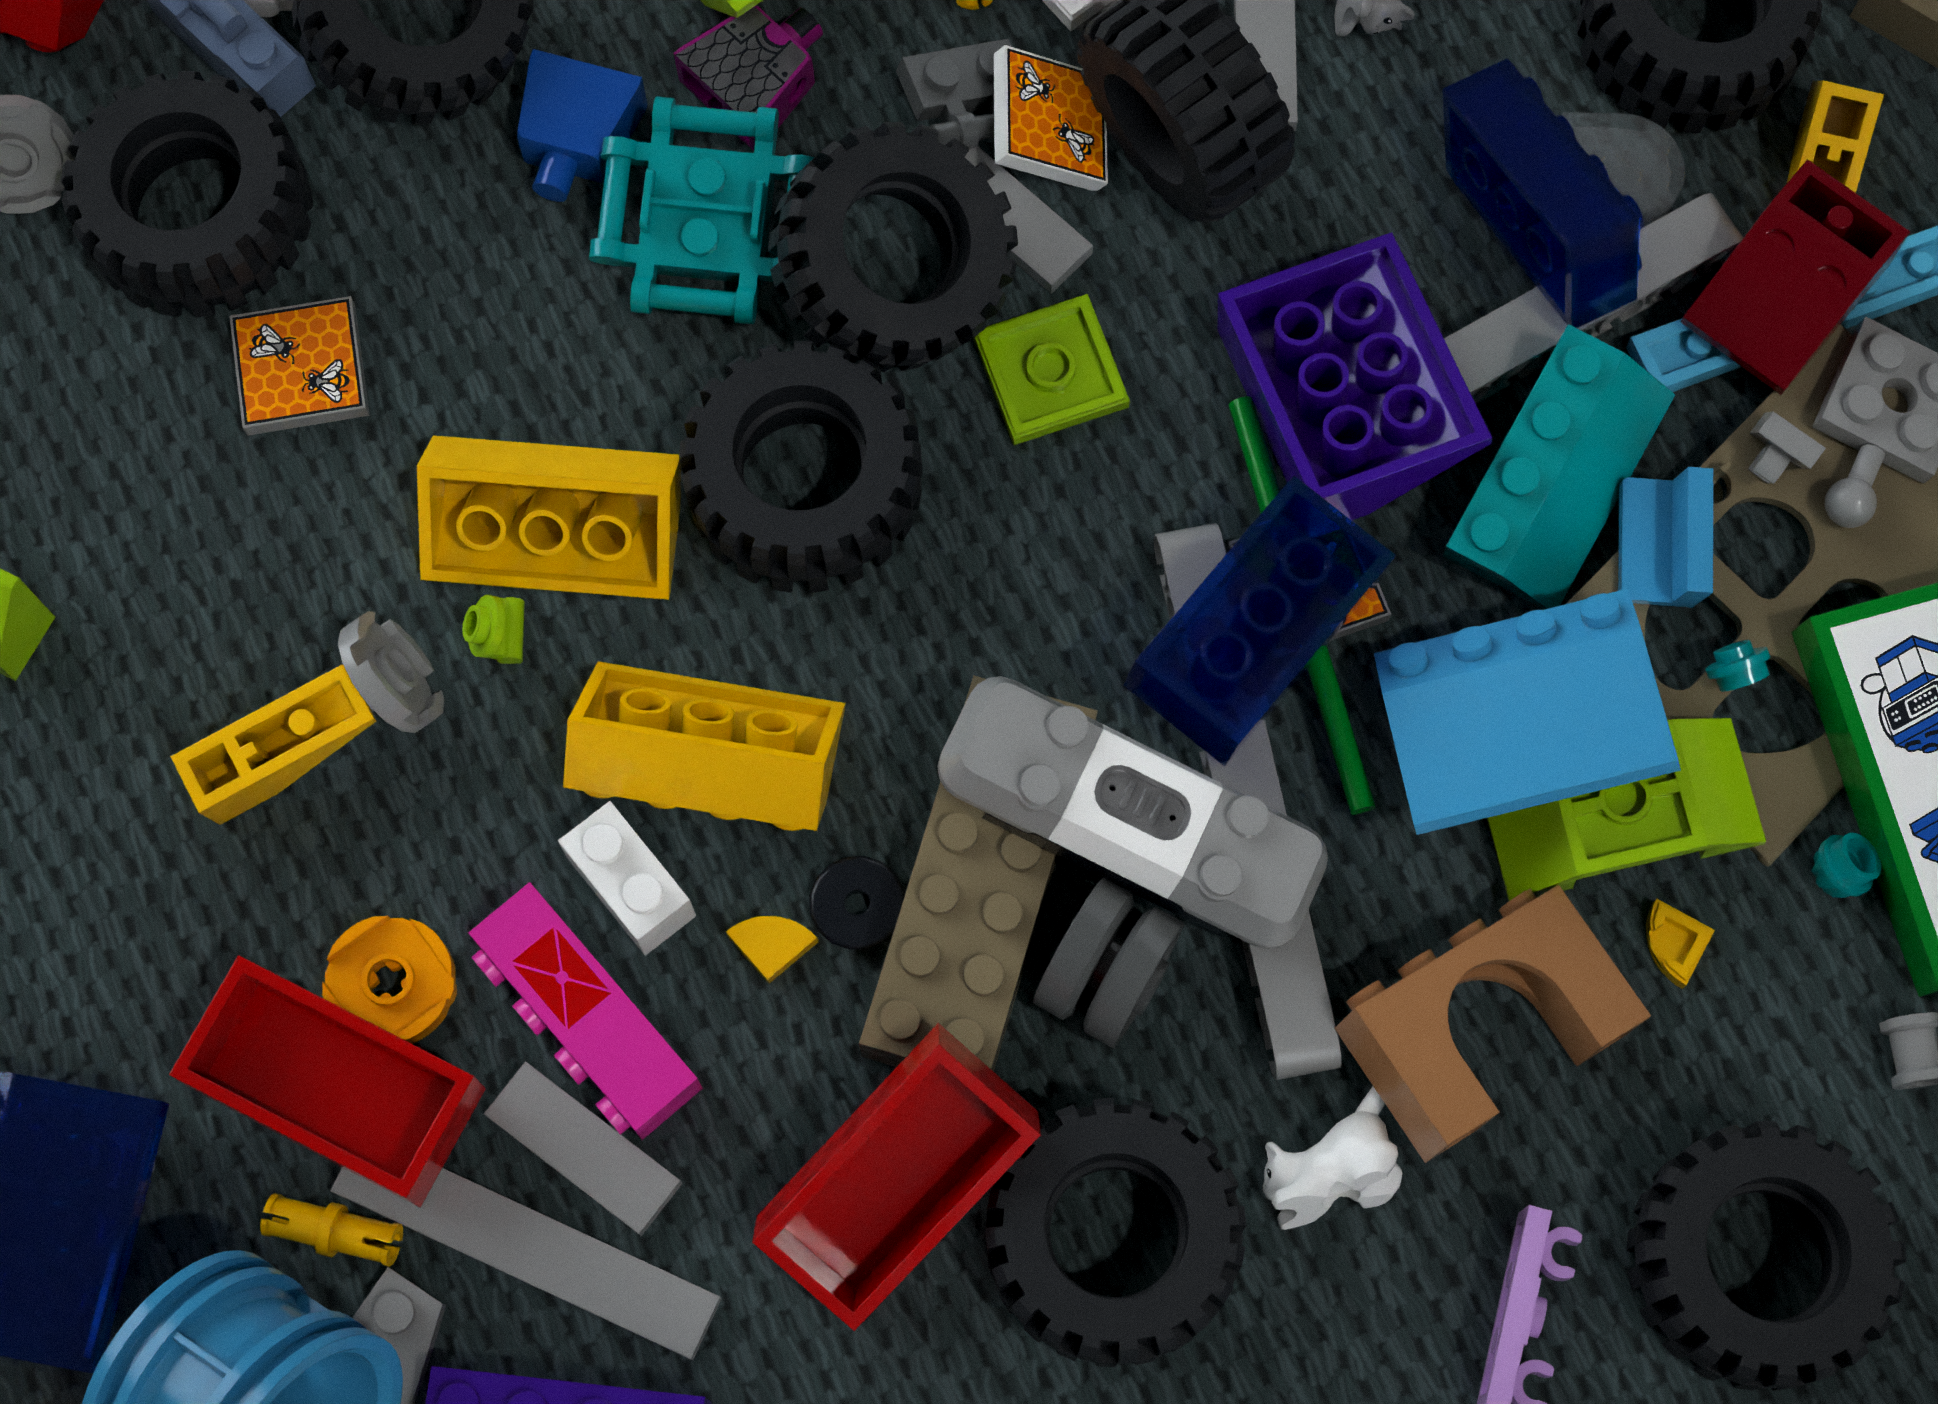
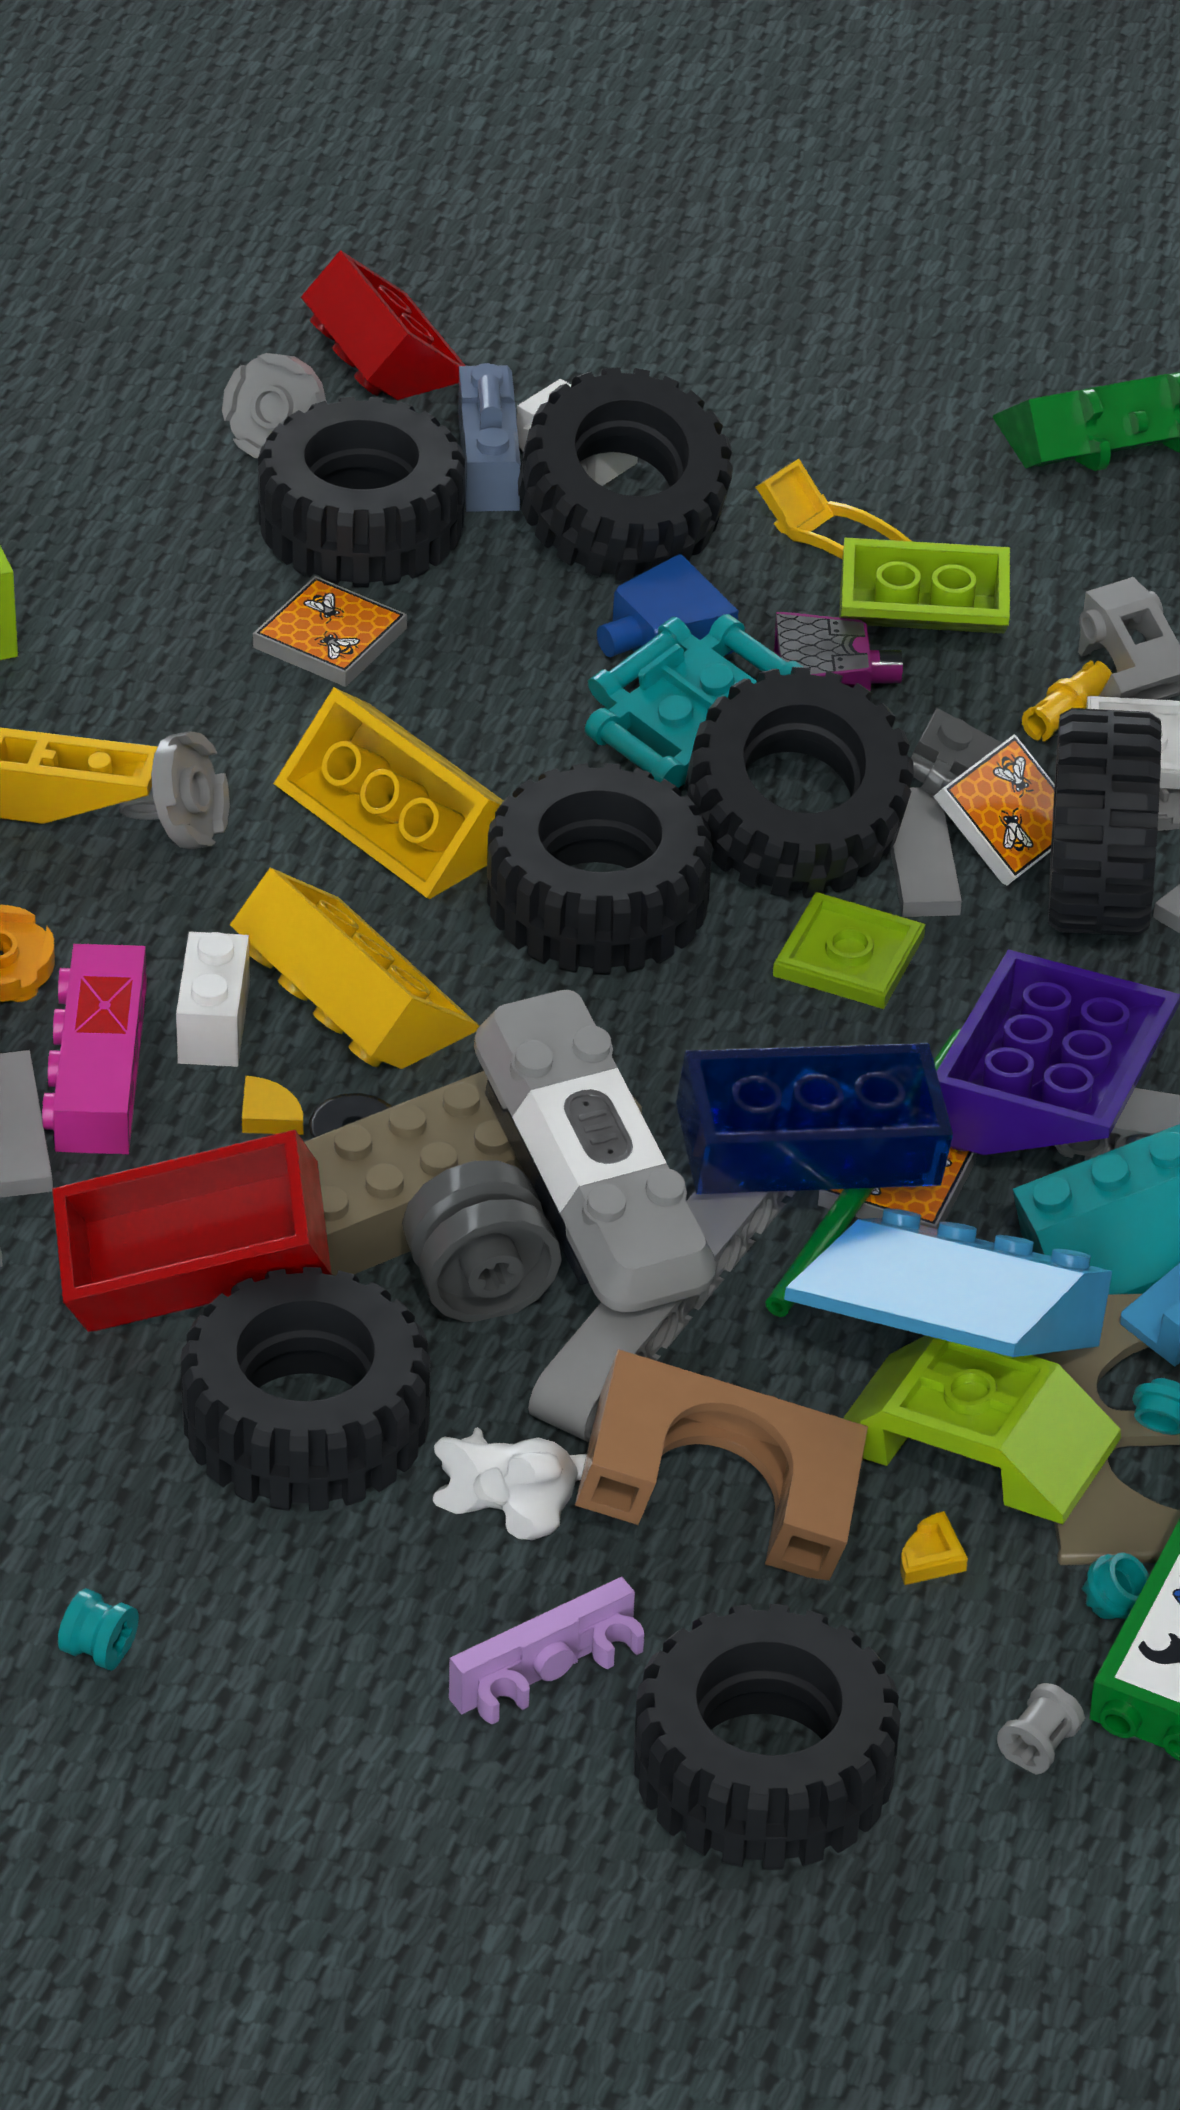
camera: 40 degrees right, 30 degrees down
(496, 628) = (292, 833): lime plate -> none

